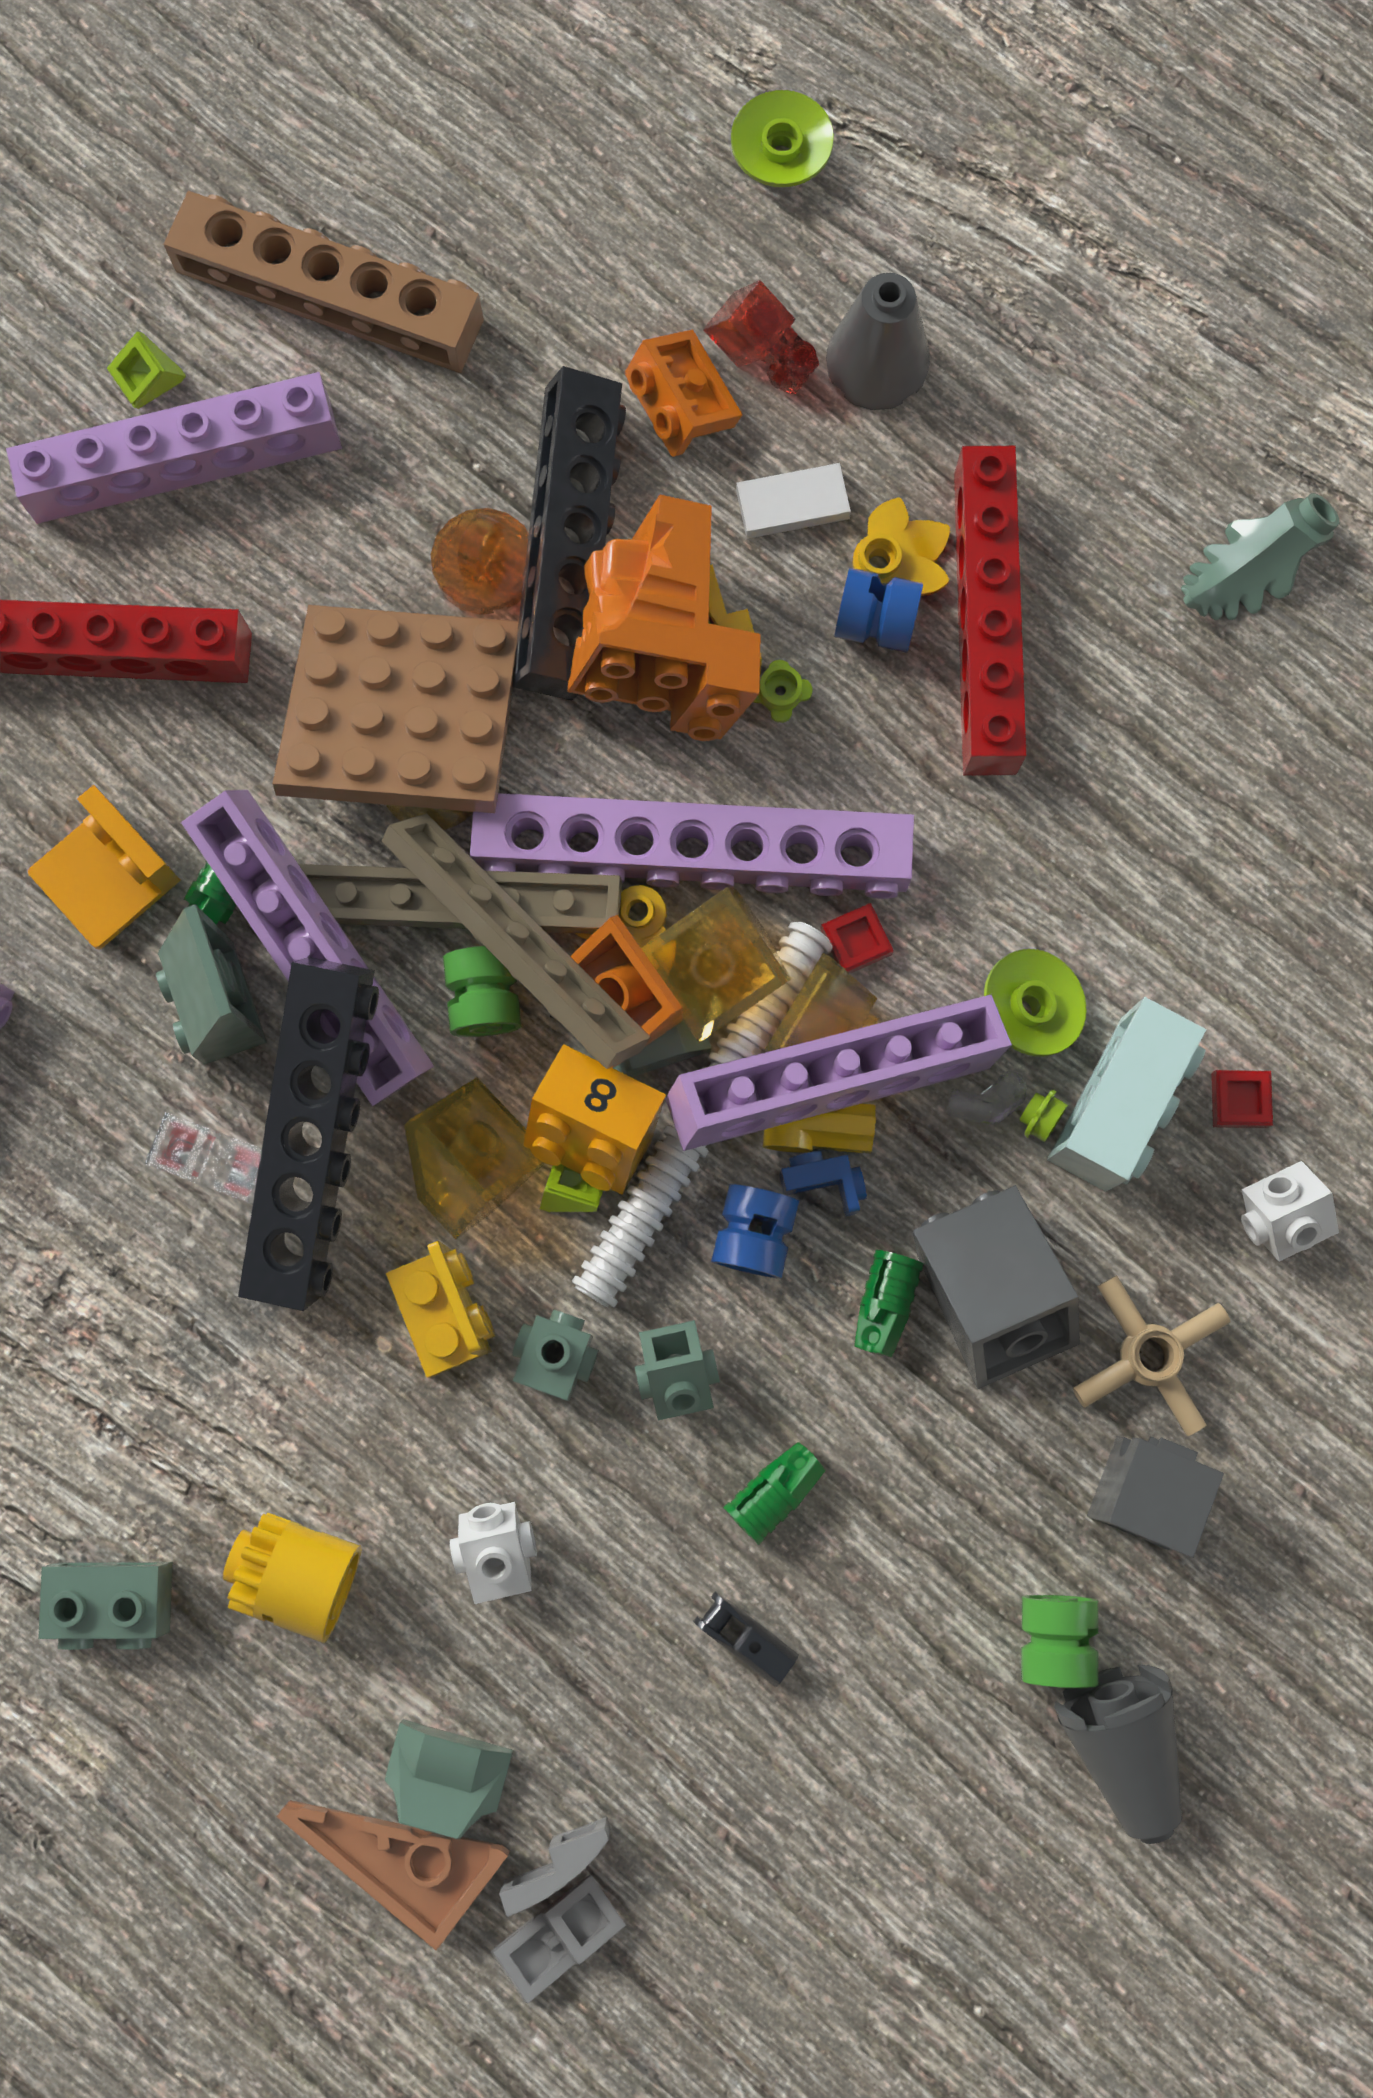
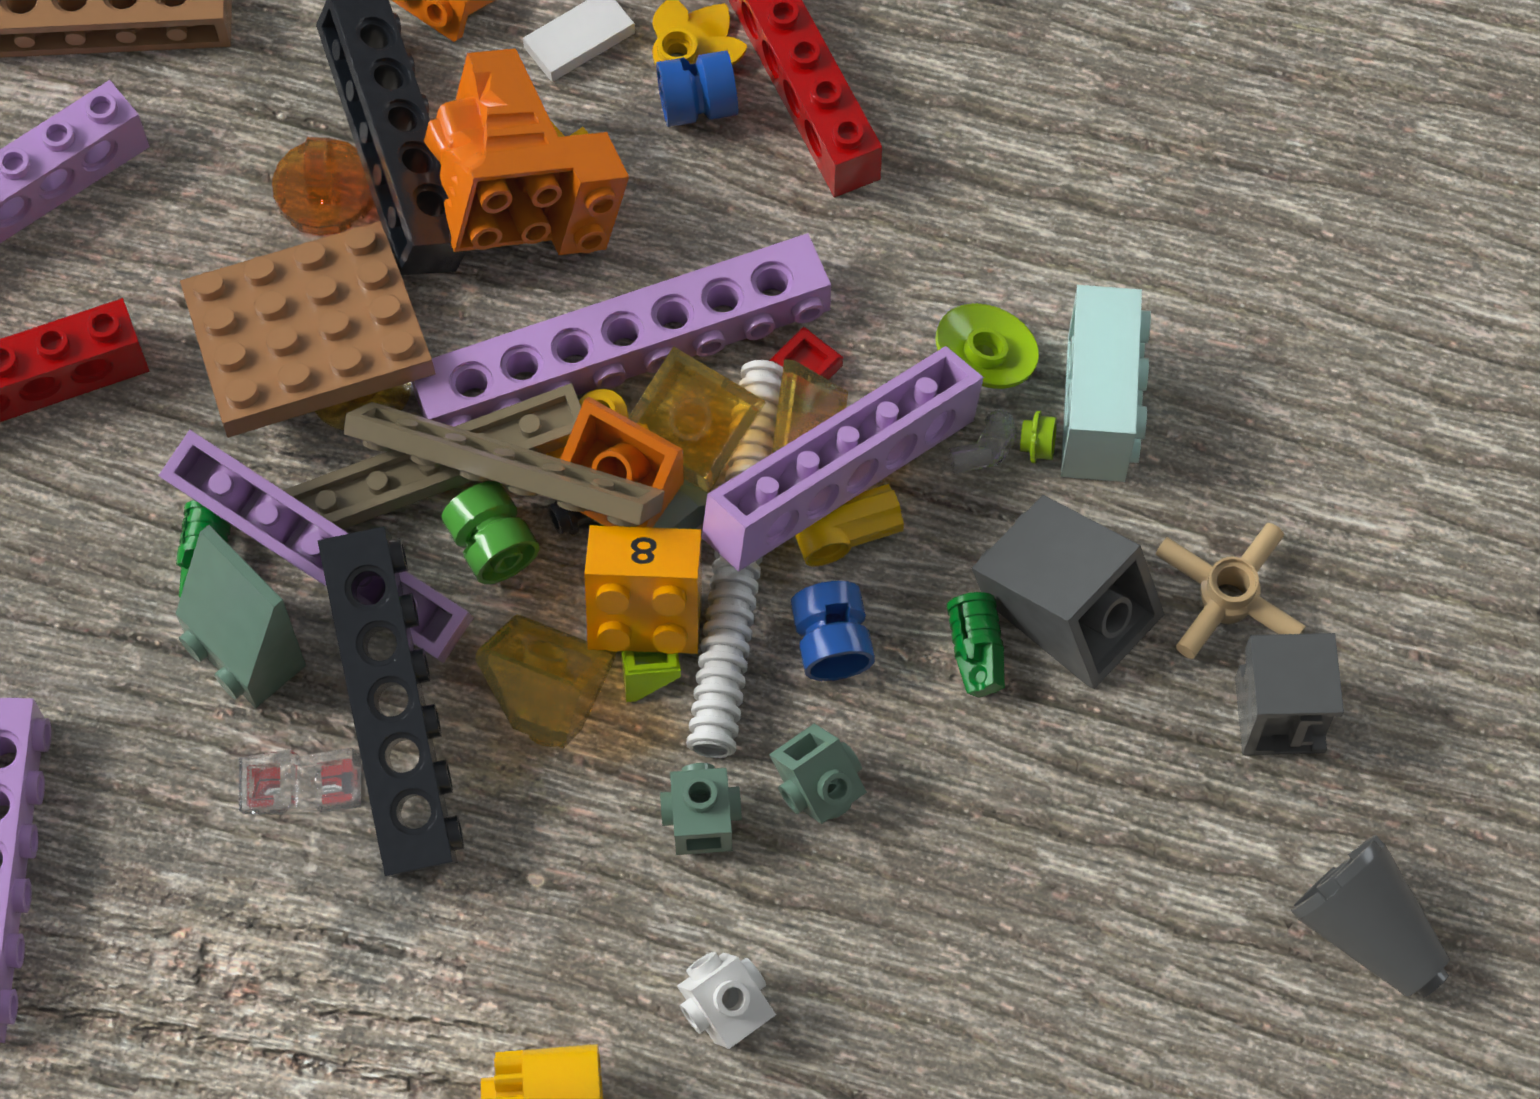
camera: 25 degrees left, 15 degrees down
(103, 872) = (90, 571): light orange bracket -> none
(439, 1310) = (580, 813): yellow bracket -> none
(754, 1644) = (1002, 985): black bar -> none
(775, 1492) = (955, 848): green hinge -> none
(797, 690) = (652, 180): lime plate -> none
(811, 1172) = (873, 559): blue bracket -> none
(1059, 1641) = (1271, 862): bright green wheel -> none
(1242, 1099) = (1203, 357): red tile -> none
(1289, 1211) = (1288, 422): white brick -> none

